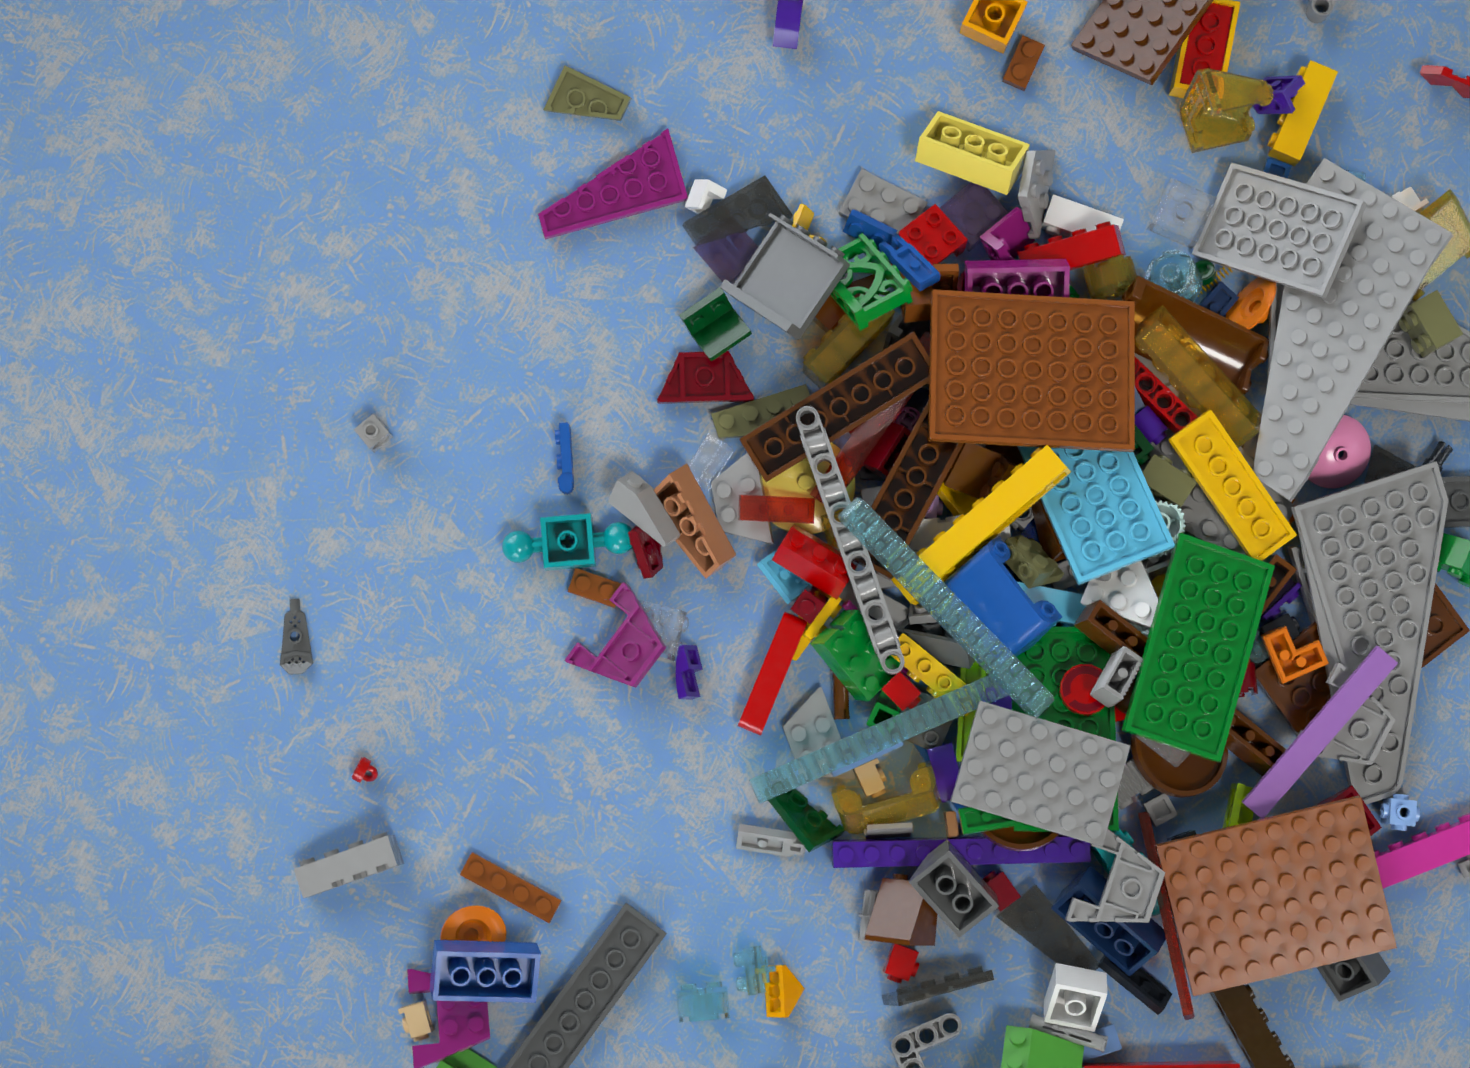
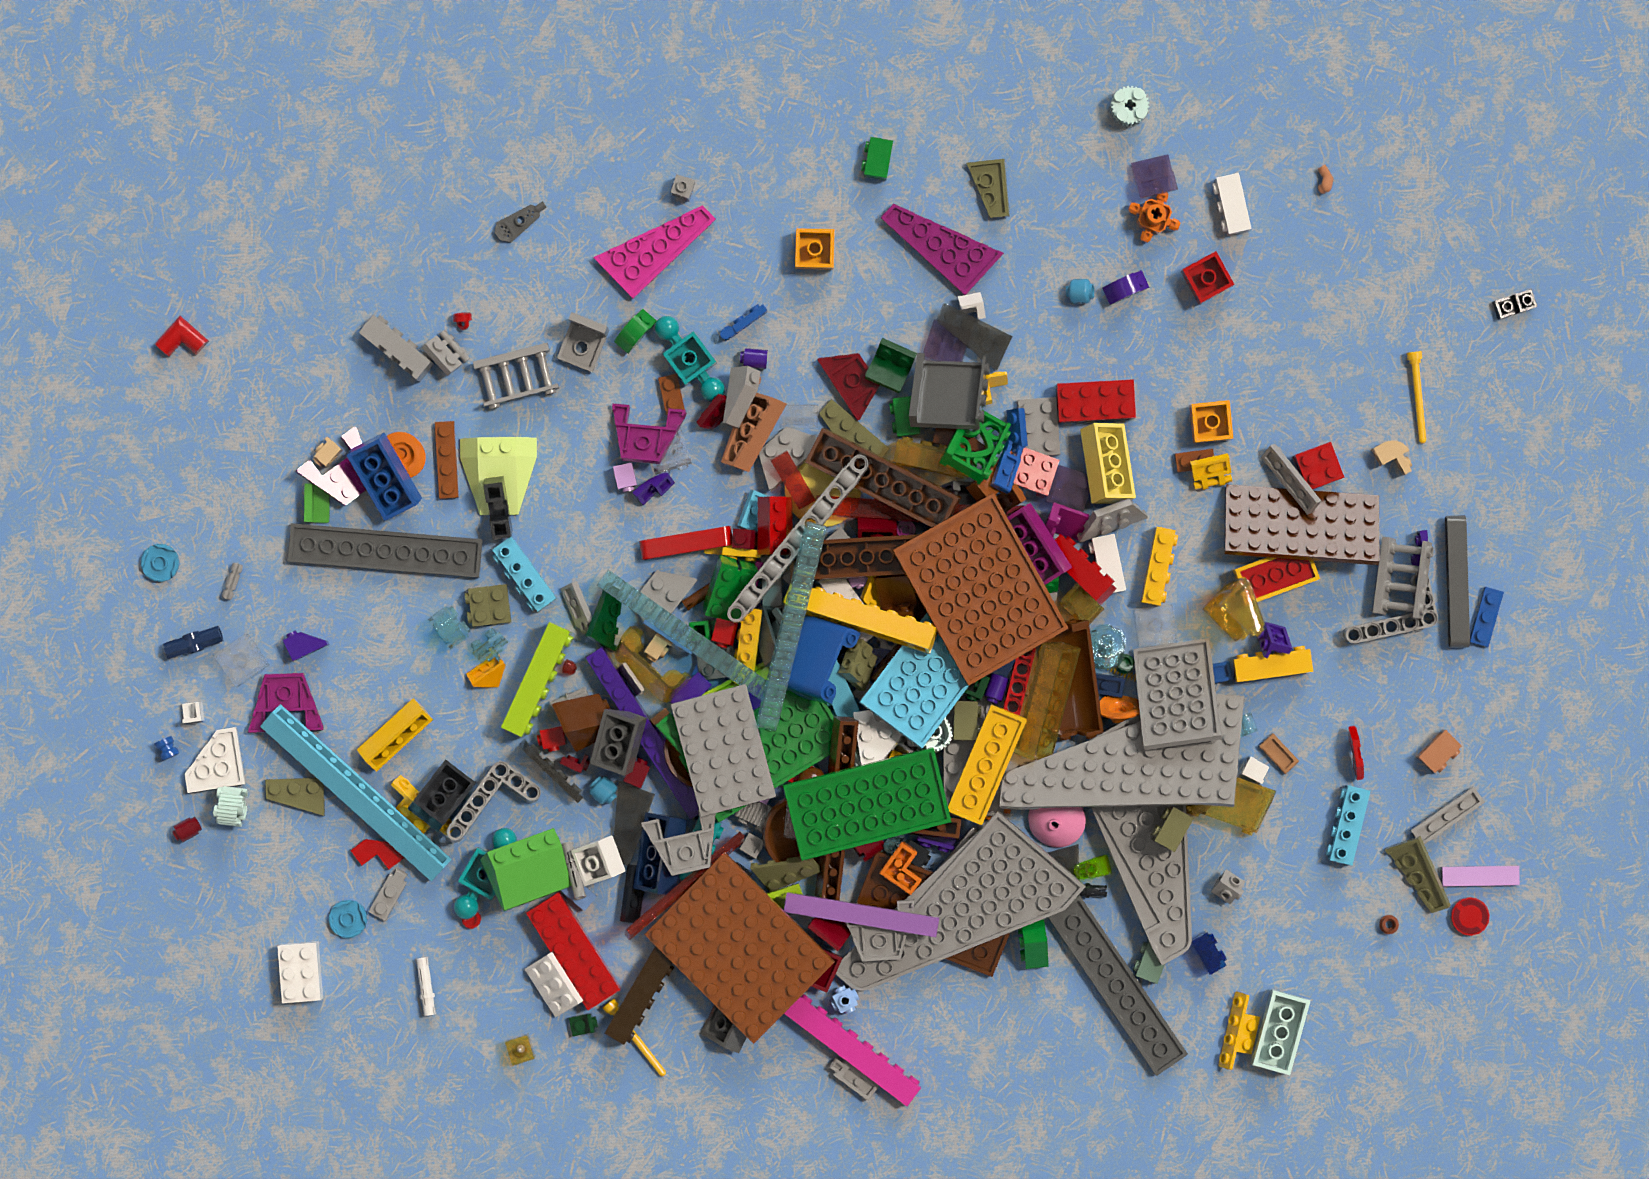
camera: 55 degrees right, 5 degrees up
(390, 818) = (442, 355): none -> light grey plate
(423, 518) = (647, 255): none -> dark pink wing
(448, 730) = (521, 357): none -> light grey fence
(464, 639) = (586, 331): none -> light grey bracket
(477, 200) = (878, 158): none -> green brick
(499, 584) = (634, 331): none -> green brick
(533, 329) = (814, 249): none -> light orange brick
(560, 836) = (499, 457): none -> yellowish green wedge
(601, 861) = (498, 506): none -> black arch
(612, 470) = (754, 358): none -> dark purple brick
(656, 696) = (625, 477): none -> lavender brick
(695, 879) = (524, 573): none -> medium azure brick
(705, 942) = (488, 605): none -> olive plate
(761, 72) = (1080, 291): none -> dark azure head
(780, 345) = (900, 409): none -> green brick
(825, 941) = (536, 680): none -> lime brick
(832, 894) = (569, 667): none -> clear red hinge
(893, 127) = (1095, 401): none -> red brick
(942, 957) = (571, 762): none -> dark red bracket
(996, 941) = (603, 790): none -> dark azure head
(1043, 48) = (1211, 467): none -> yellow plate
(1076, 689) = (797, 748): red tile -> none
(1116, 677) = (815, 762): light grey brick -> none
(1117, 170) = (1157, 568): none -> yellow brick
(1214, 799) = (781, 874): none -> olive wing
(1315, 780) = (831, 931): none -> dark red slope
(1402, 167) = (1279, 753): none -> medium nougat tile
(1412, 443) = (1093, 868): none -> clear neon green piece

